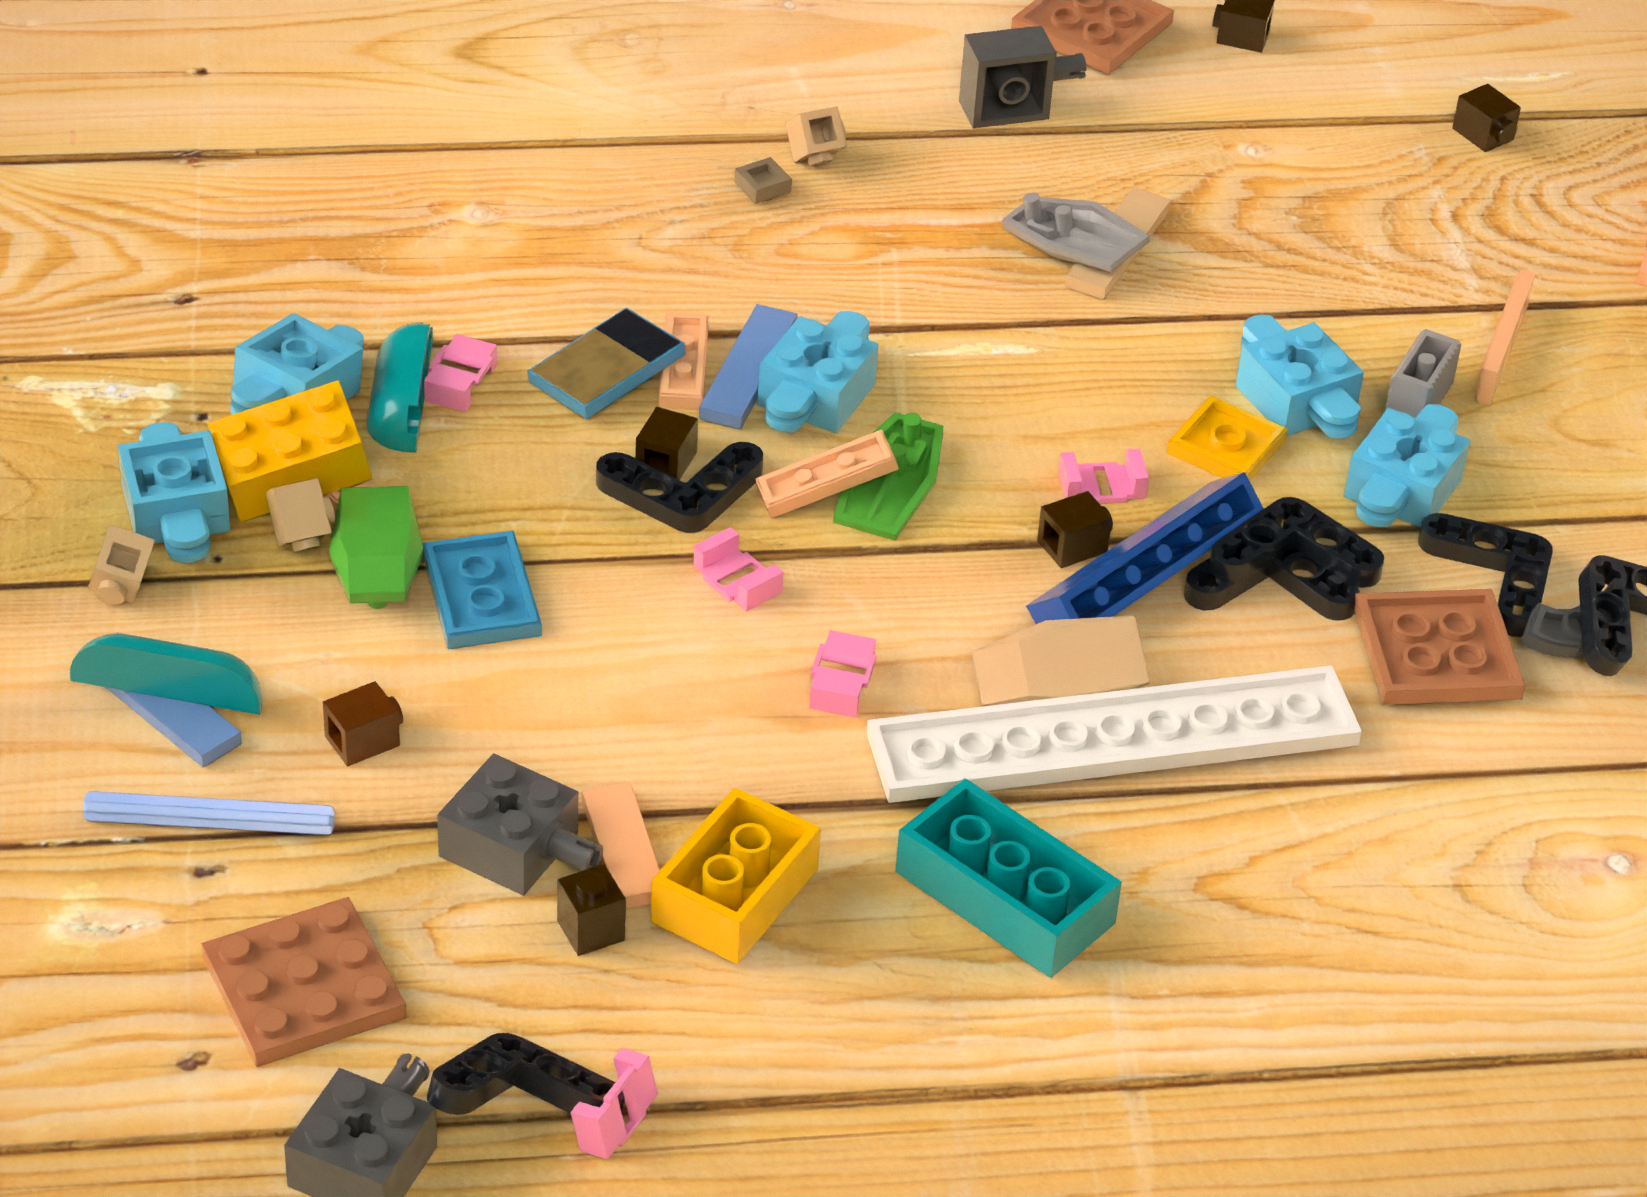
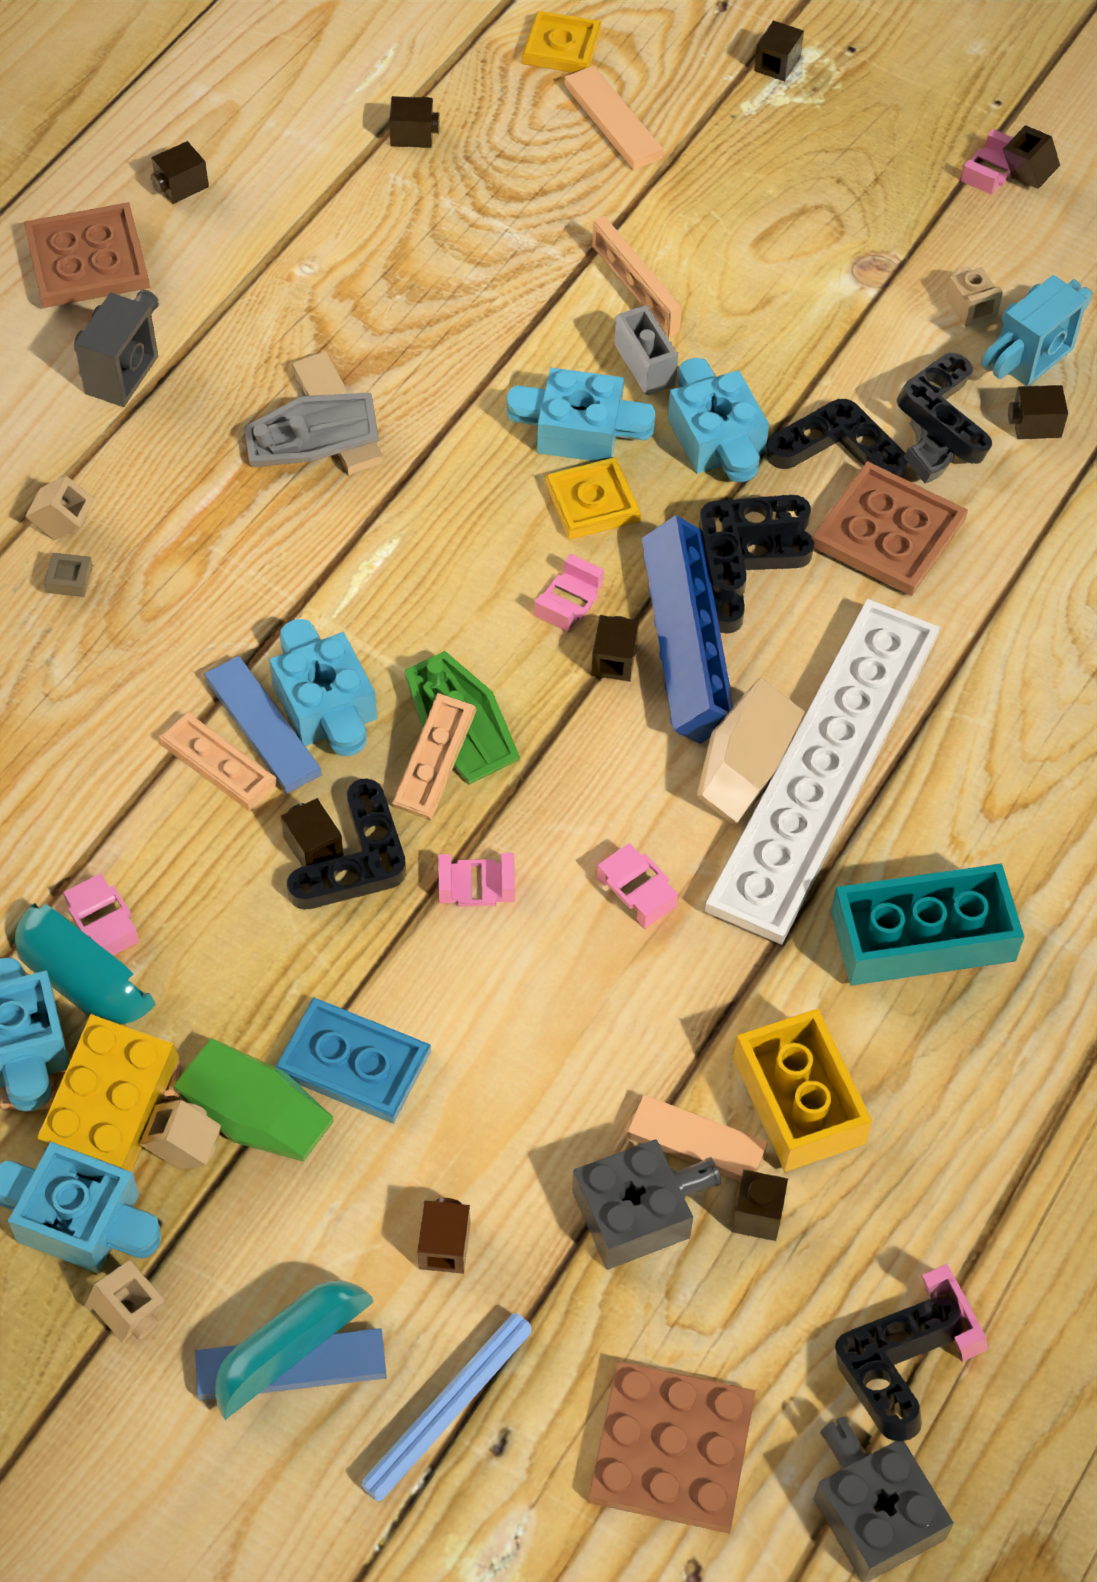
camera: 50 degrees left, 15 degrees up
(606, 363) = (183, 813): tile -> none

